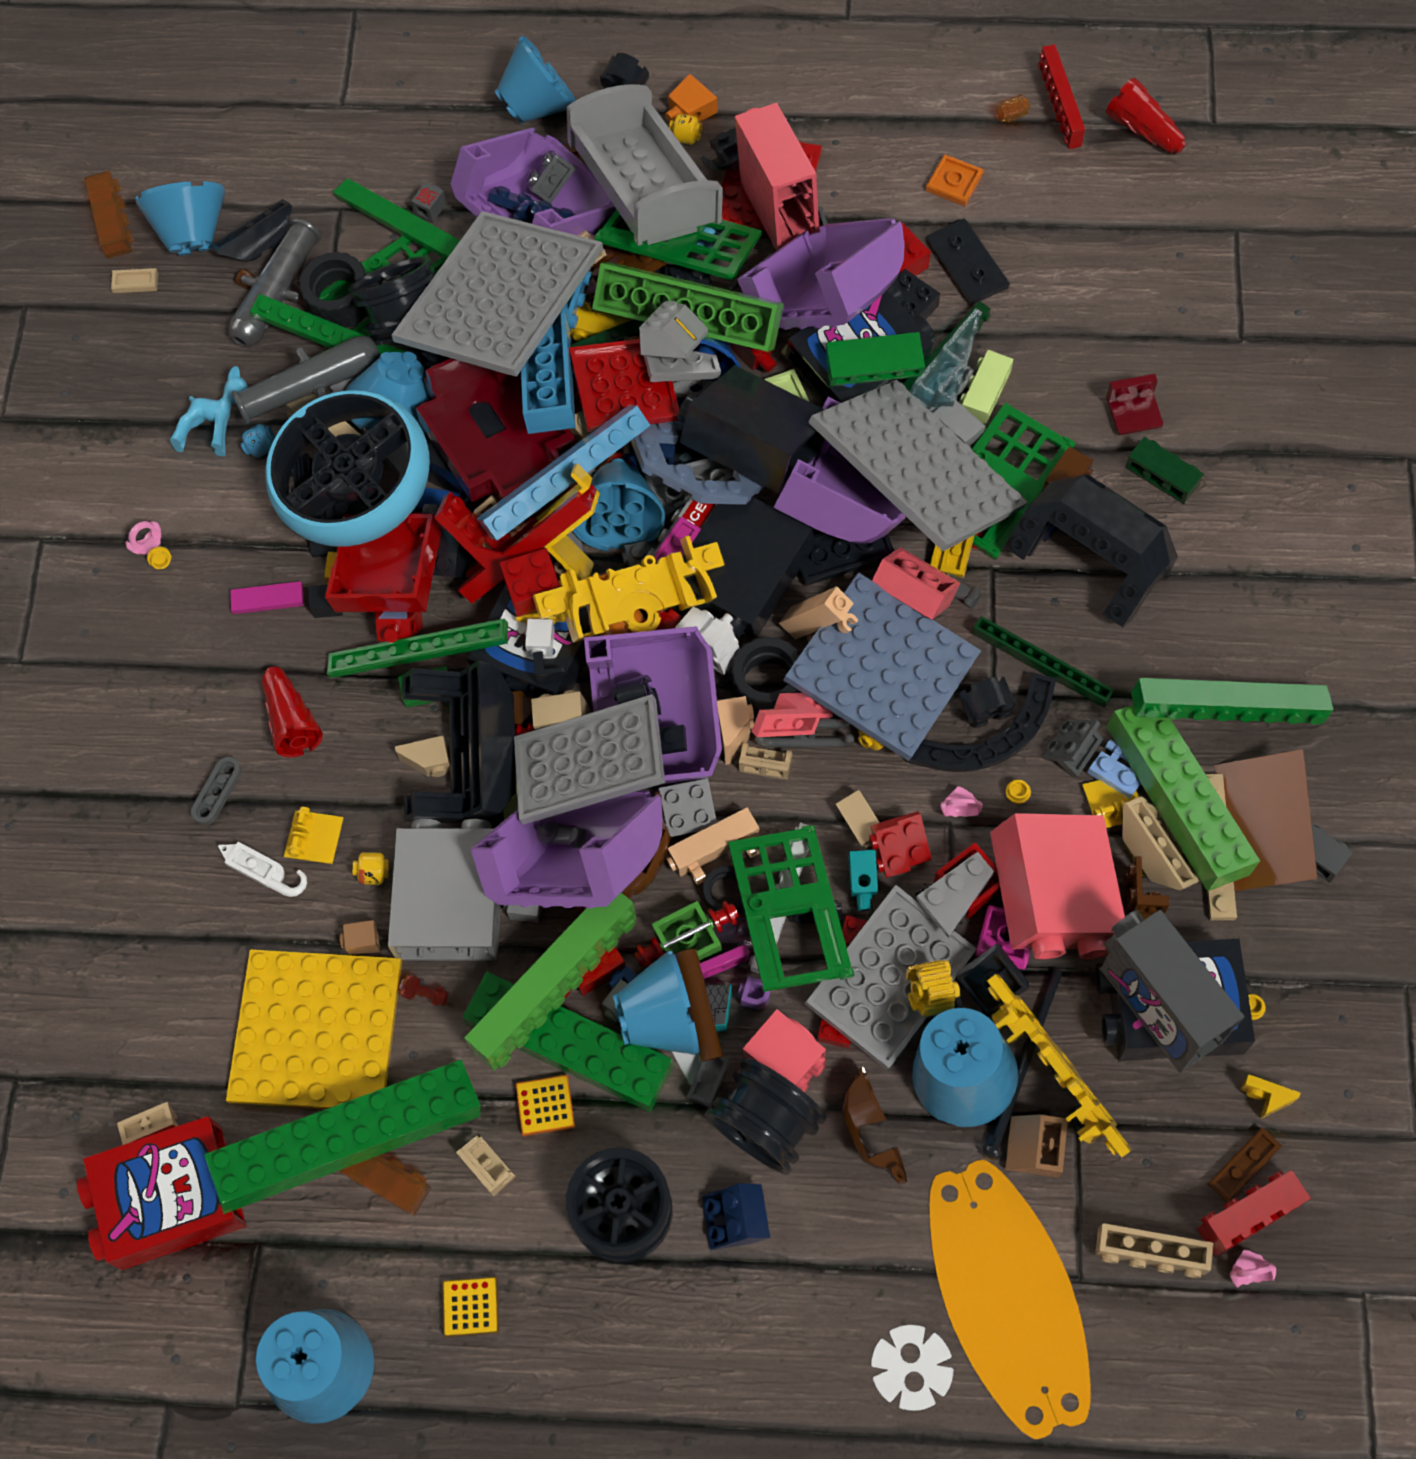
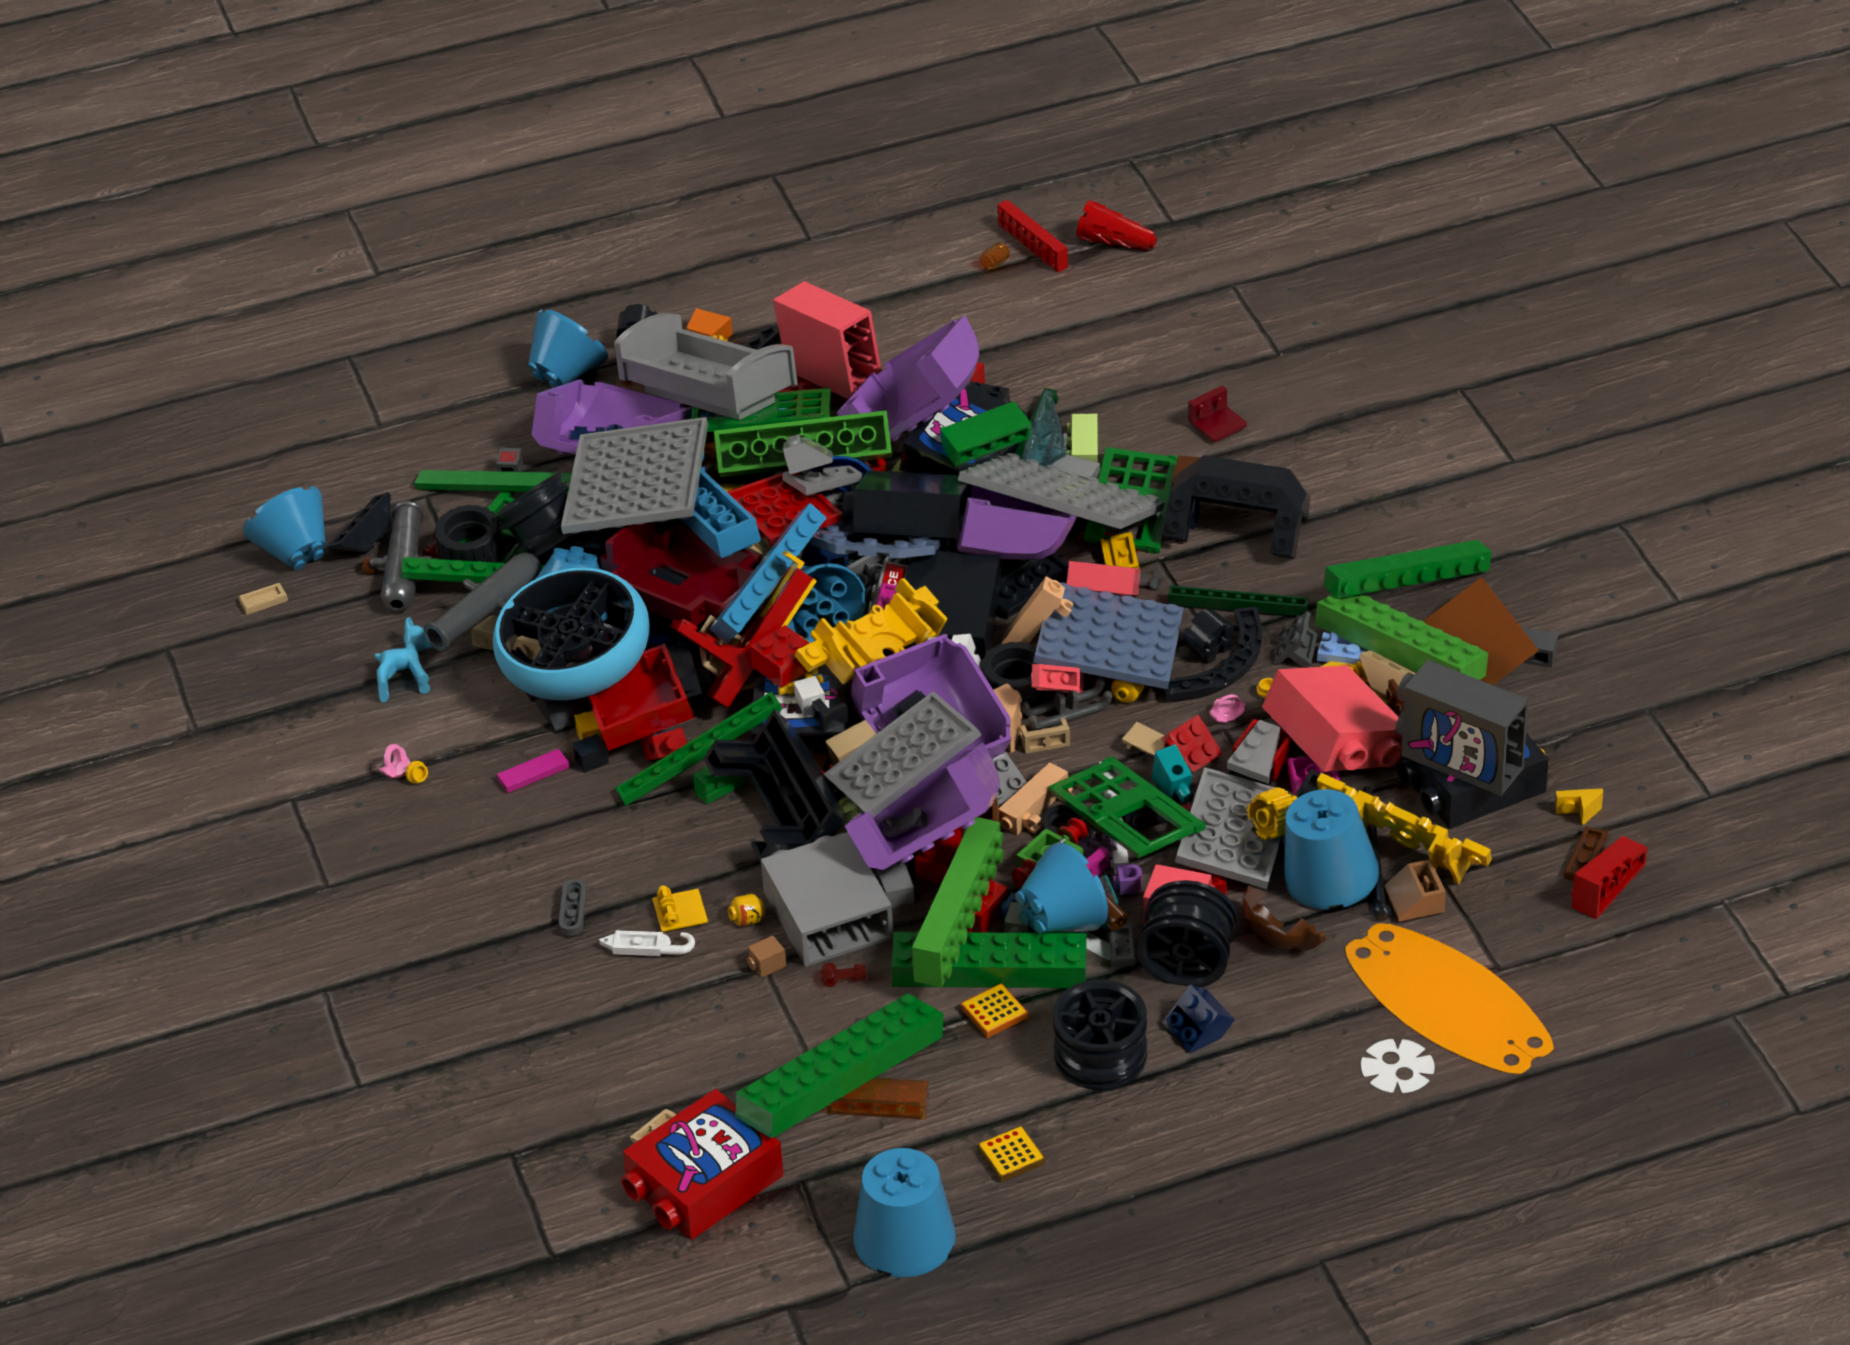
camera: 25 degrees left, 25 degrees down
(108, 214) = (210, 558): clear orange brick -> none
(257, 440) = (458, 666): dark azure head -> none
(290, 720) = (612, 835): red cone -> none
(313, 1029) = (755, 1024): yellow plate -> none
(426, 756) = (745, 823): tan slope -> none
(485, 1165) = (966, 1064): tan hinge -> none
(550, 176) = (614, 407): dark grey bracket -> none
(954, 180) = (978, 314): orange tile -> none
(967, 261) = (1018, 368): black plate -> none
(1154, 1249) = (1544, 920): tan brick -> none
(1164, 470) = (1266, 449): dark green brick -> none
(1251, 1268) = (1629, 911): bright pink piece -> none

